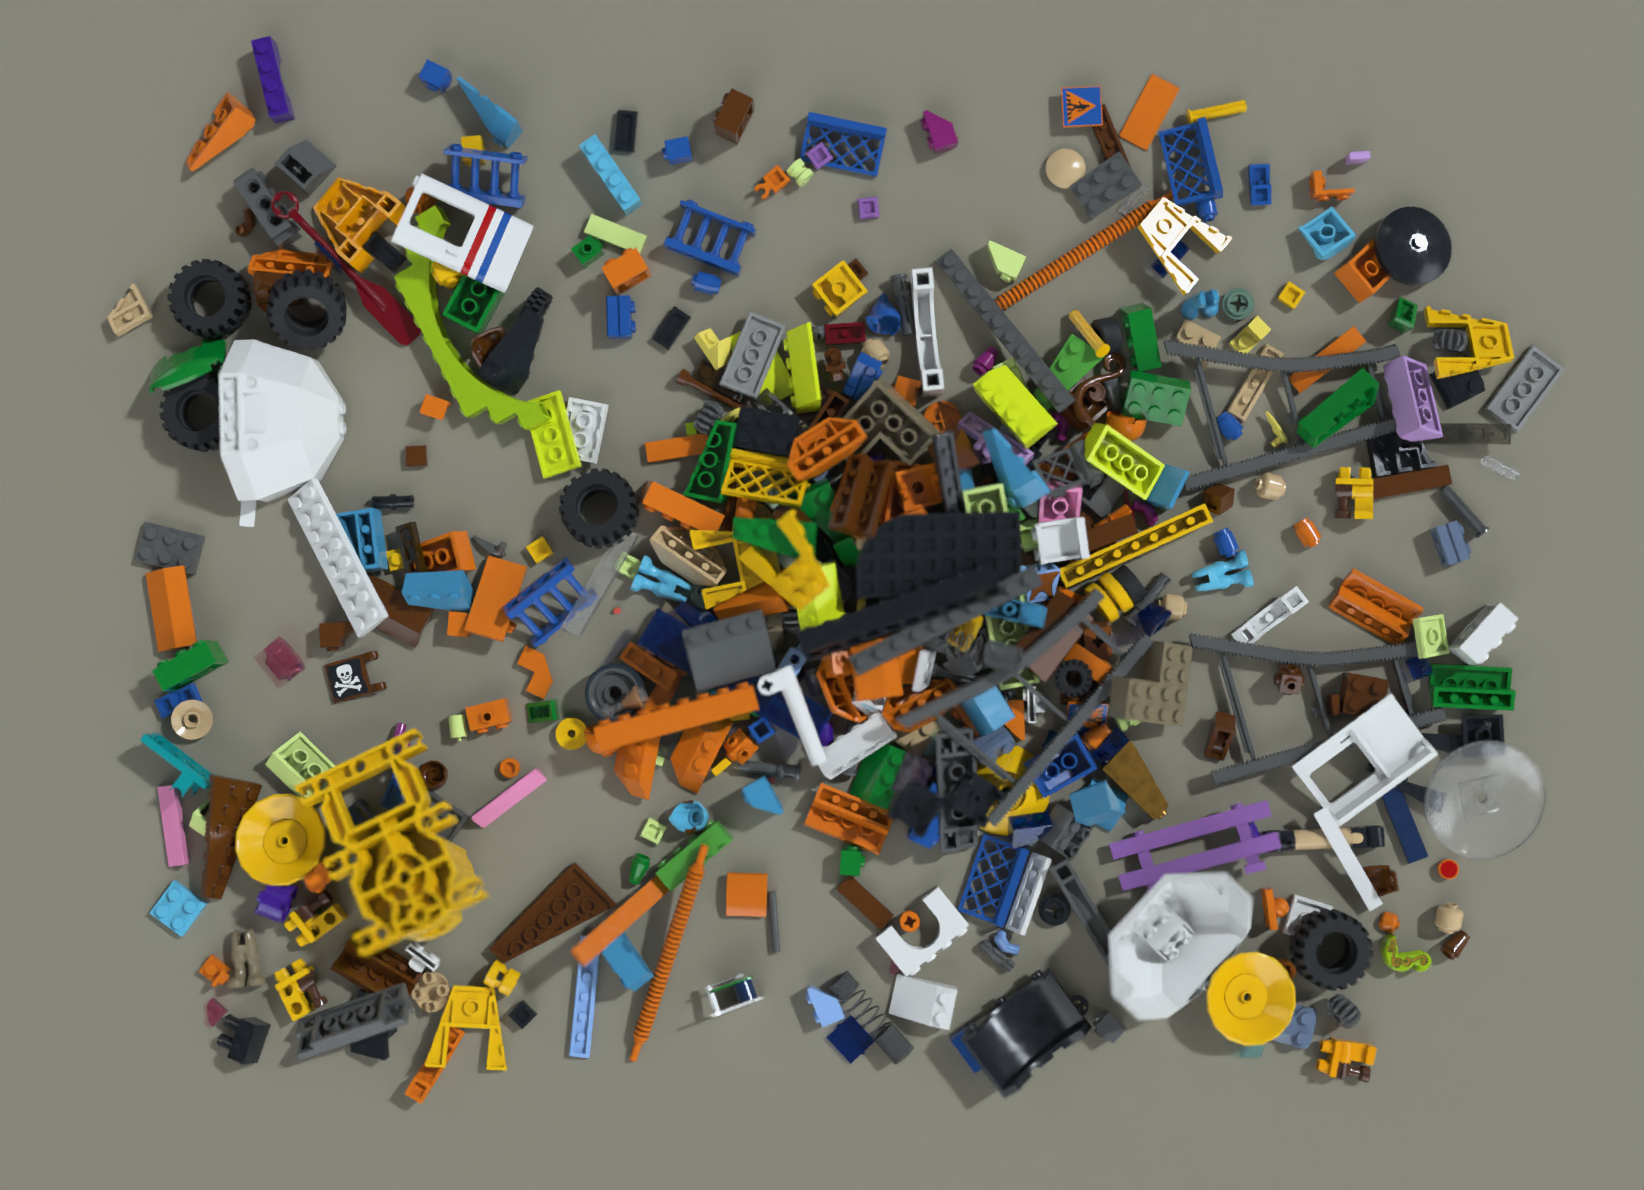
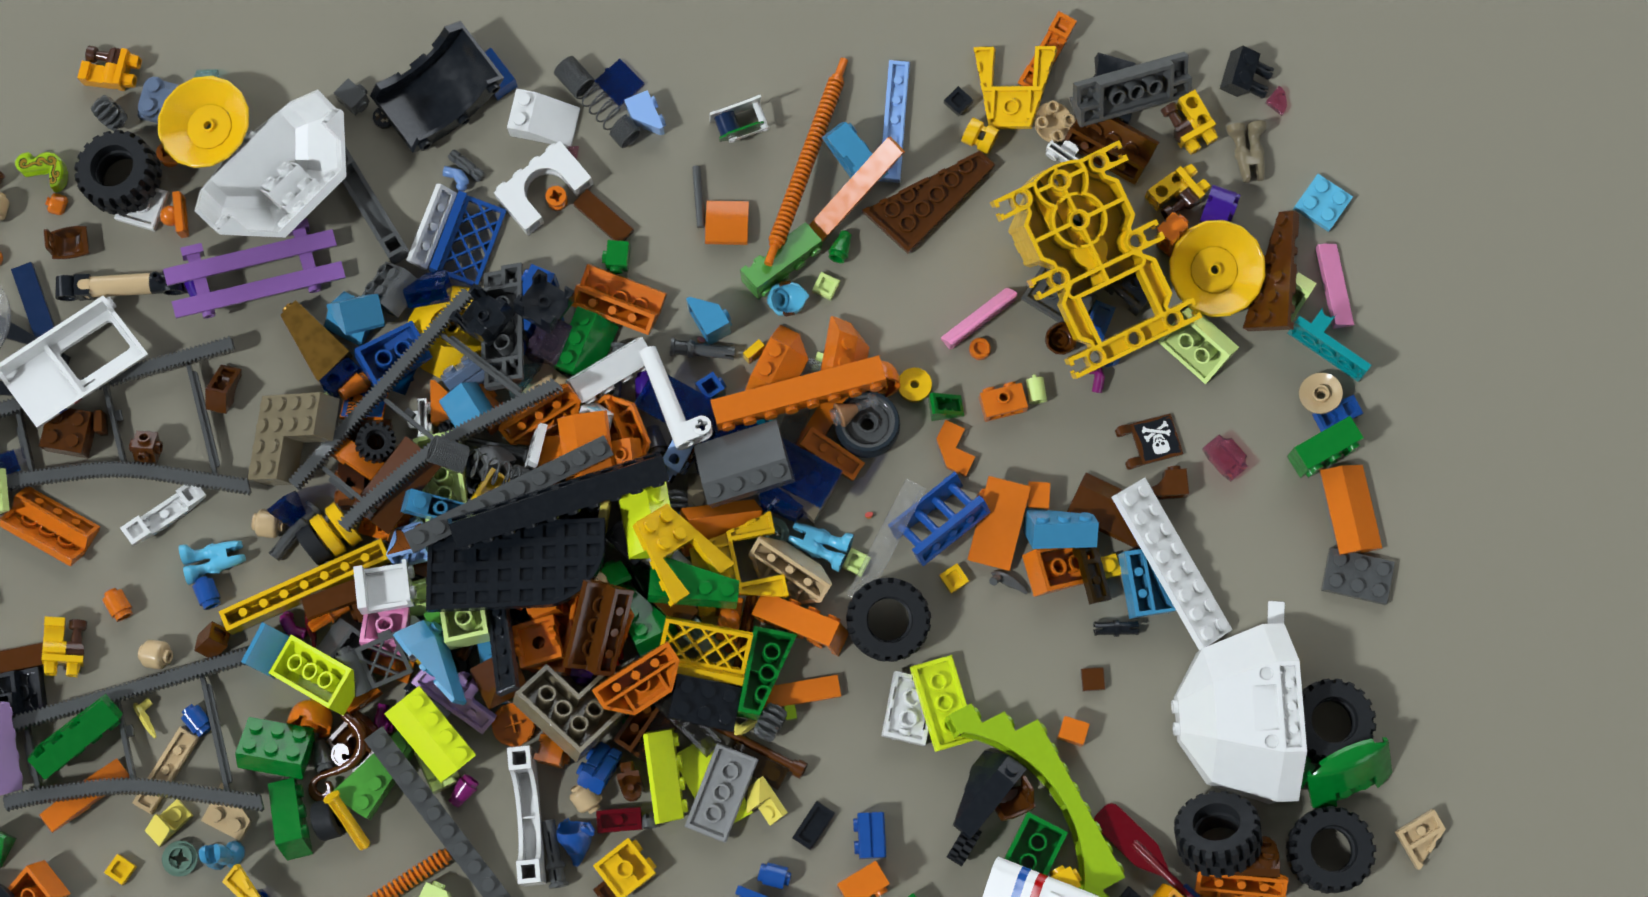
camera: 175 degrees right, 10 degrees down
(215, 971) = (1279, 140): orange bracket -> none
(740, 747) = (733, 370): orange brick -> none
(1061, 915) = (398, 206): black gear -> none
(1348, 859) = (95, 263): white sticker -> none

